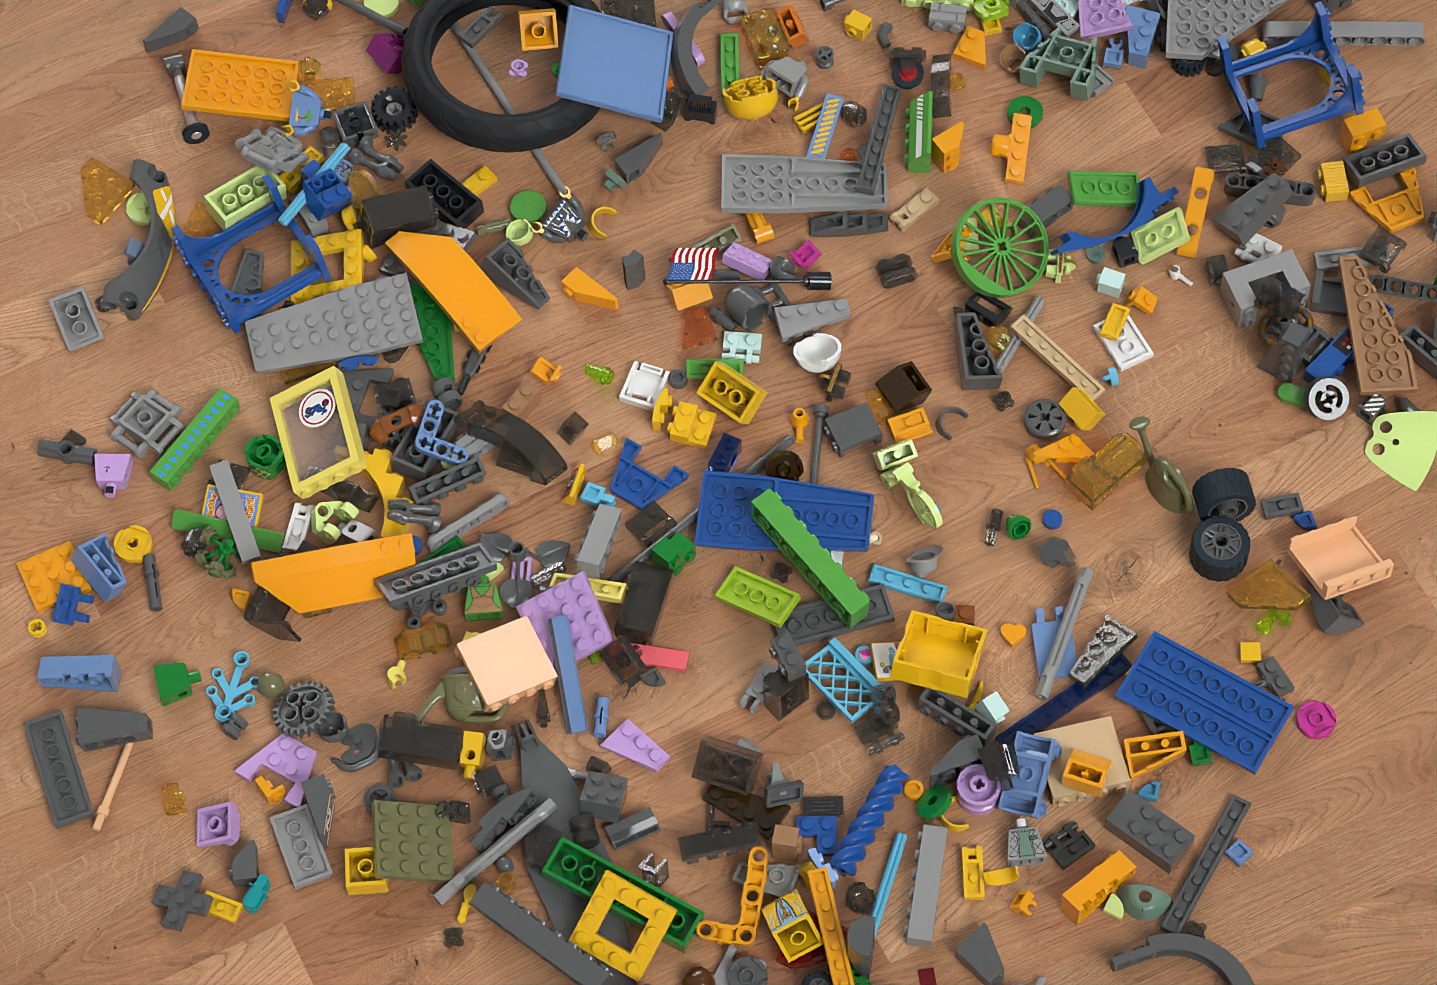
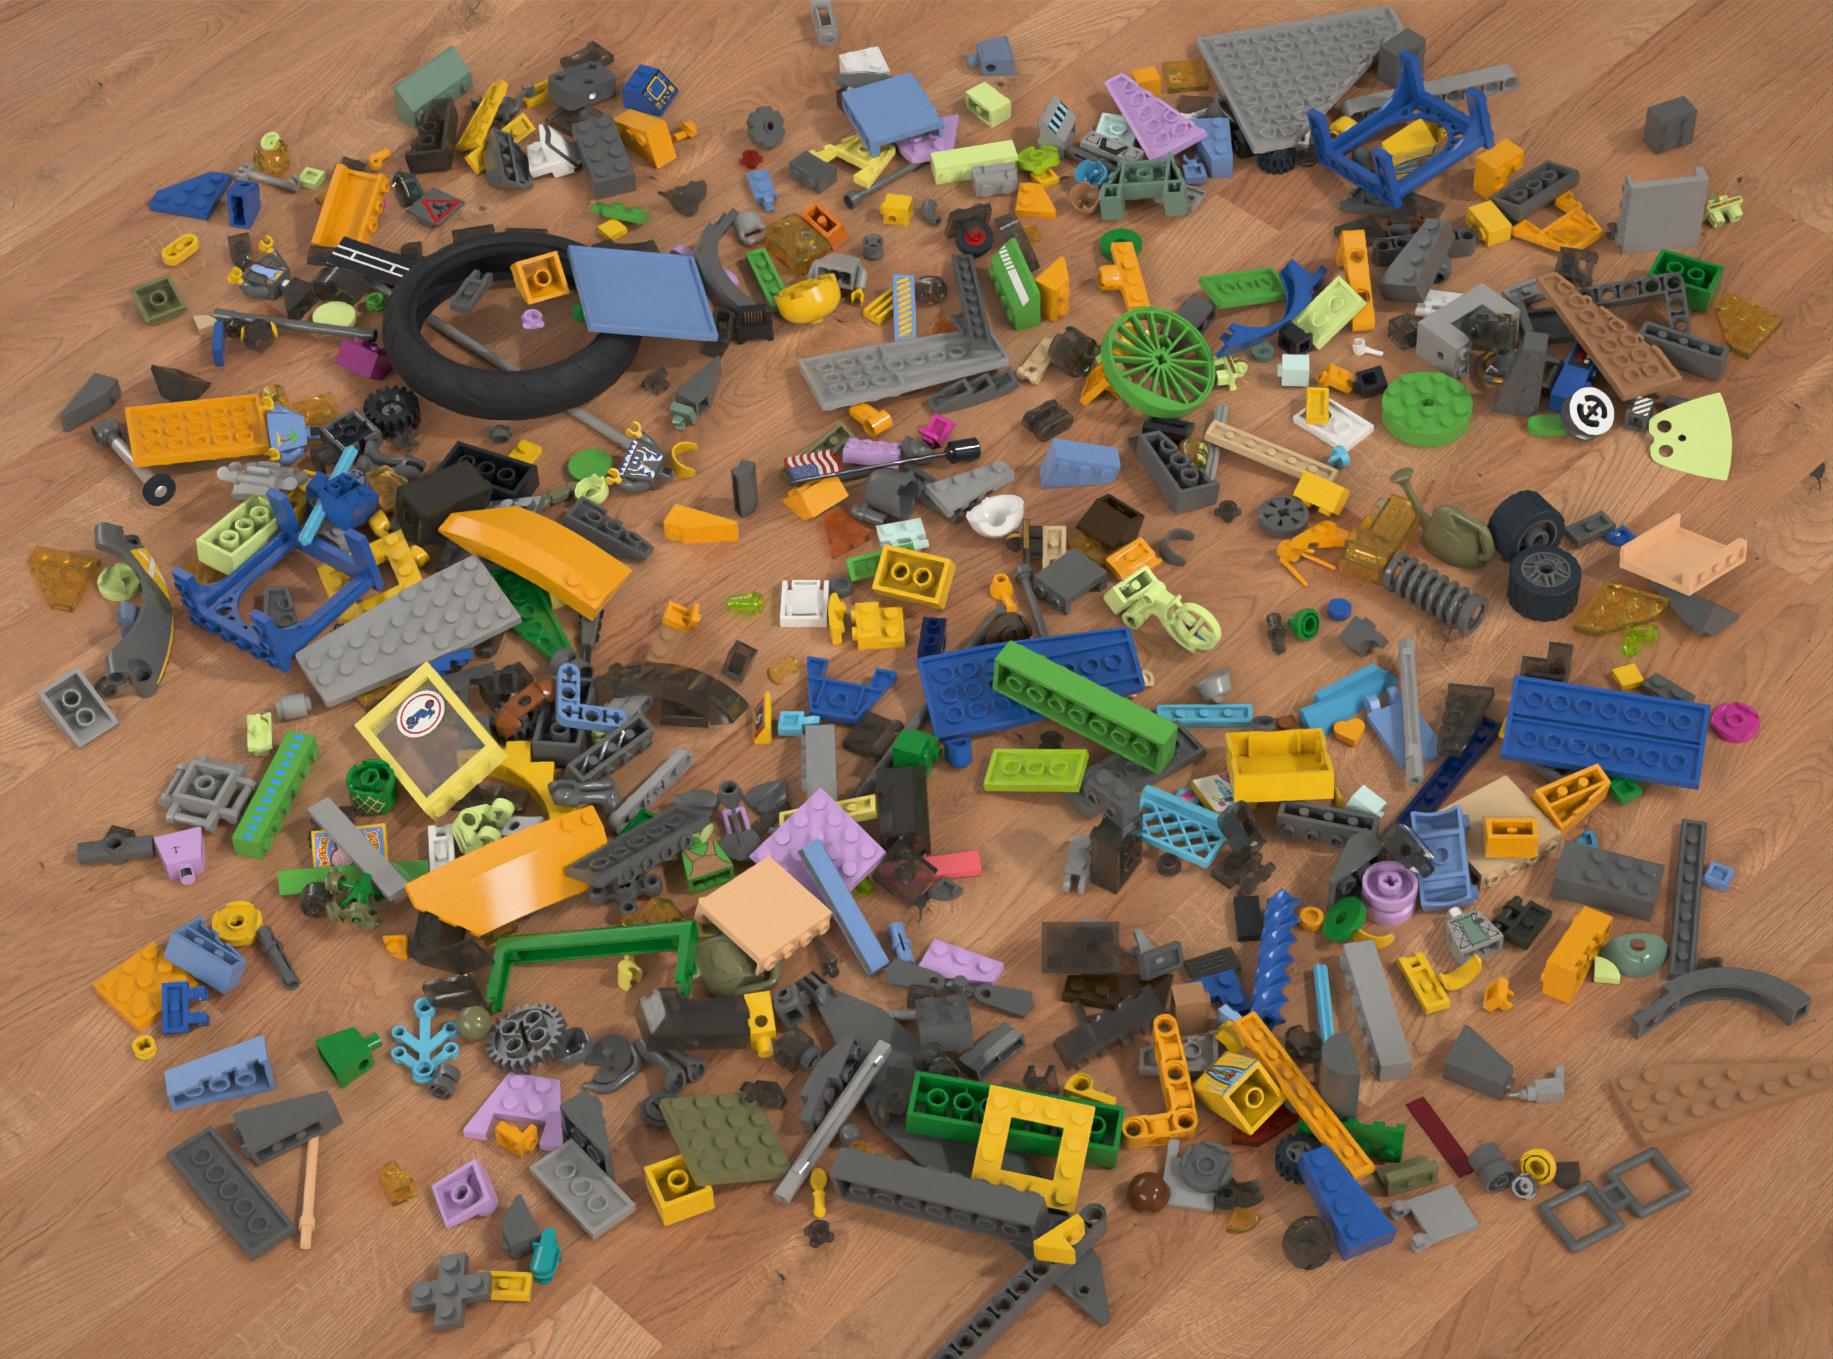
camera: 20 degrees left, 15 degrees down
(200, 382) = (260, 734): none -> yellowish green hips
(233, 364) = (293, 706): none -> light grey brick
(242, 34) = (177, 384): none -> clear smoke slope
(267, 655) = (454, 993): none -> clear smoke wing
(377, 647) = (594, 943): none -> green piece
(469, 155) = (500, 434): none -> dark grey plate
(659, 786) = (1005, 999): none -> dark grey piece
(685, 891) = (1084, 1082): none -> yellow plate
(707, 565) = (958, 752): none -> blue plate
(854, 392) = (1053, 544): none -> tan plate
(866, 774) = (1247, 918): none -> black tile
(902, 322) = (1078, 464): none -> medium blue wedge
(939, 213) = (1073, 352): none -> clear smoke brick
(1021, 604) = (1345, 698): none -> dark azure wedge
(1131, 530) = (1437, 591): none -> dark grey piece
(1172, 307) = (1374, 378): none -> black brick
(1190, 633) = (1553, 668): none -> clear smoke brick
(1203, 334) = (1426, 409): none -> bright green piece
(1292, 93) = (1410, 148): none -> yellow slope

